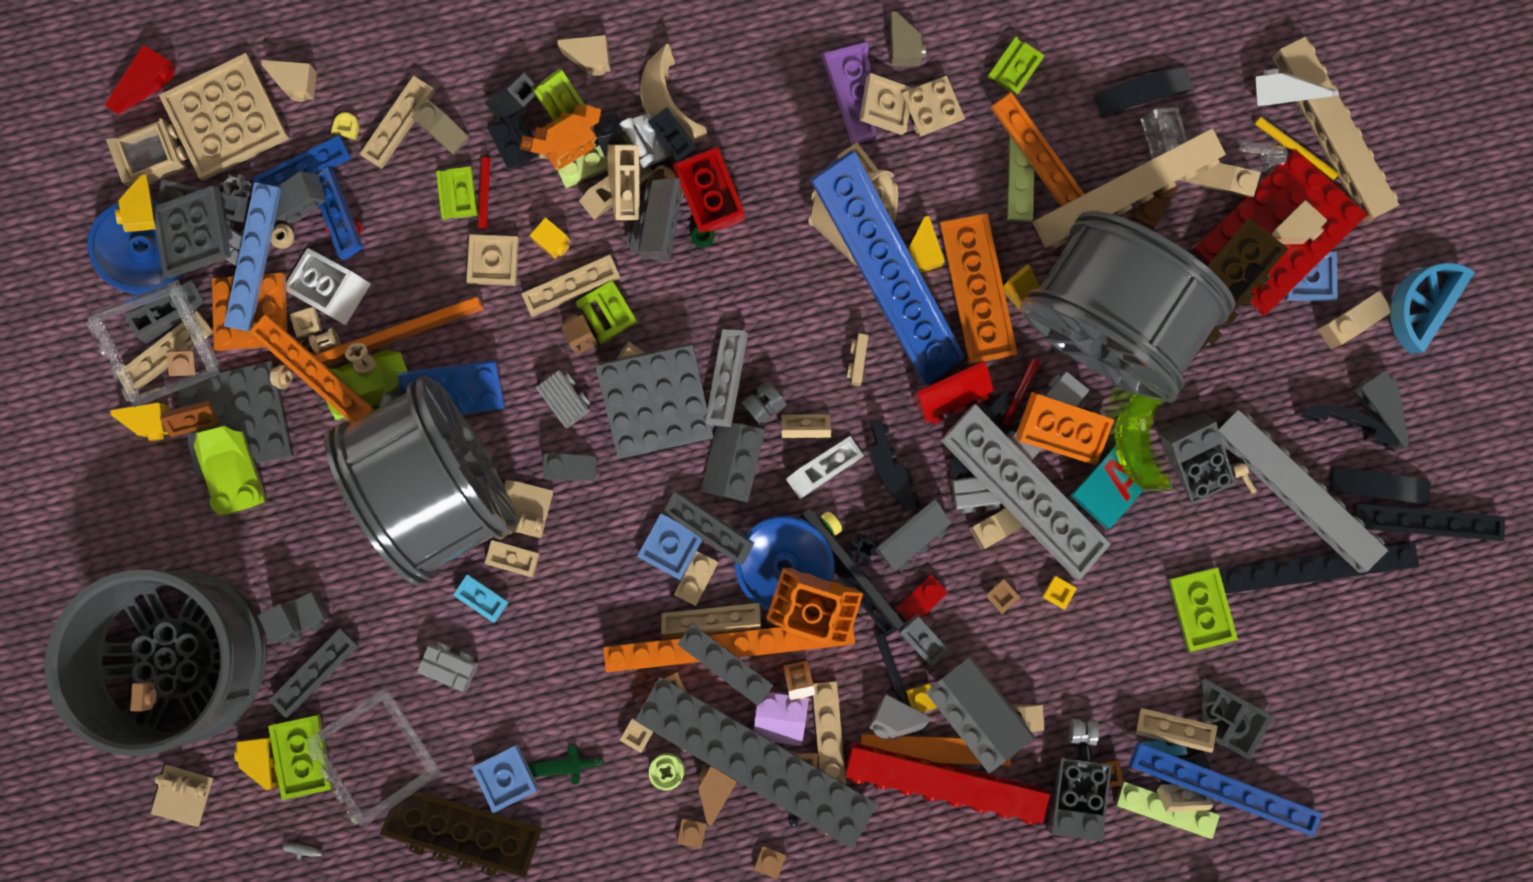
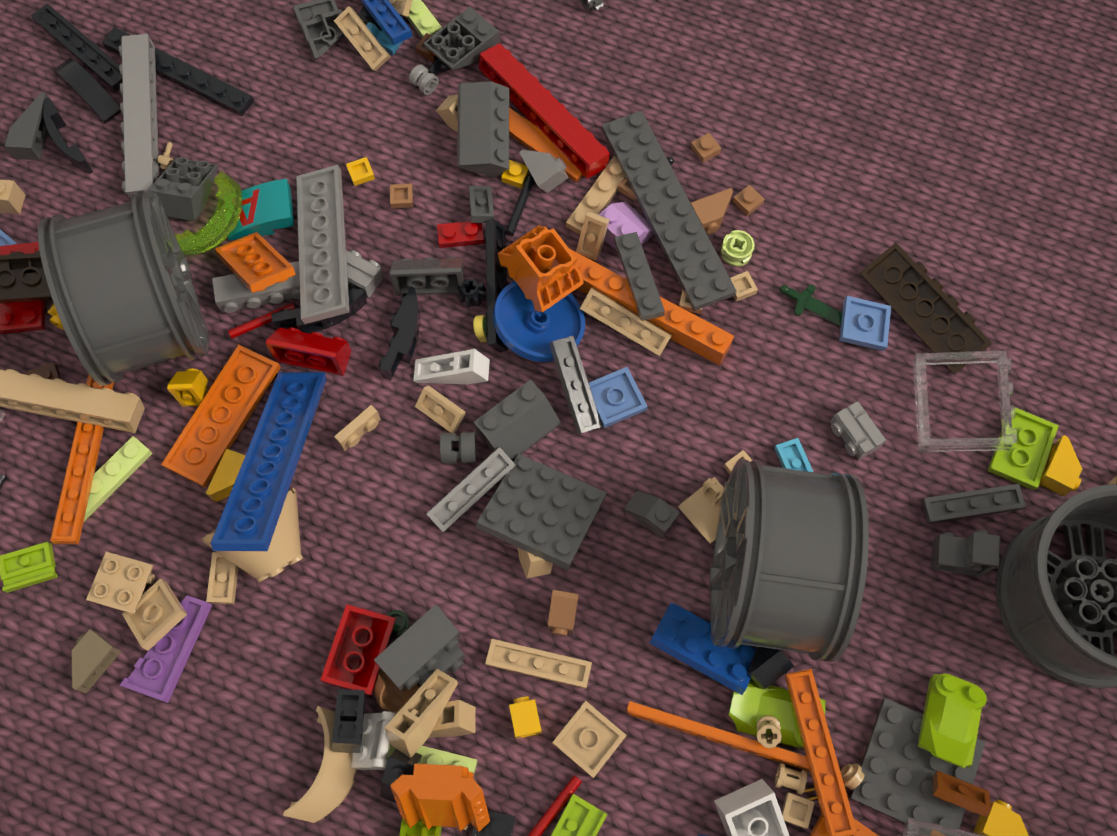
camera: 145 degrees left, 15 degrees down
(301, 850) = (1062, 383): light grey helmet -> none
(563, 399) = (615, 571): light grey brick -> none
(612, 306) = (517, 618): lime plate -> none
(696, 578) = (613, 361): tan plate -> none
(995, 528) = (367, 240): tan slope -> none
(1203, 609) = (275, 96): lime plate -> none

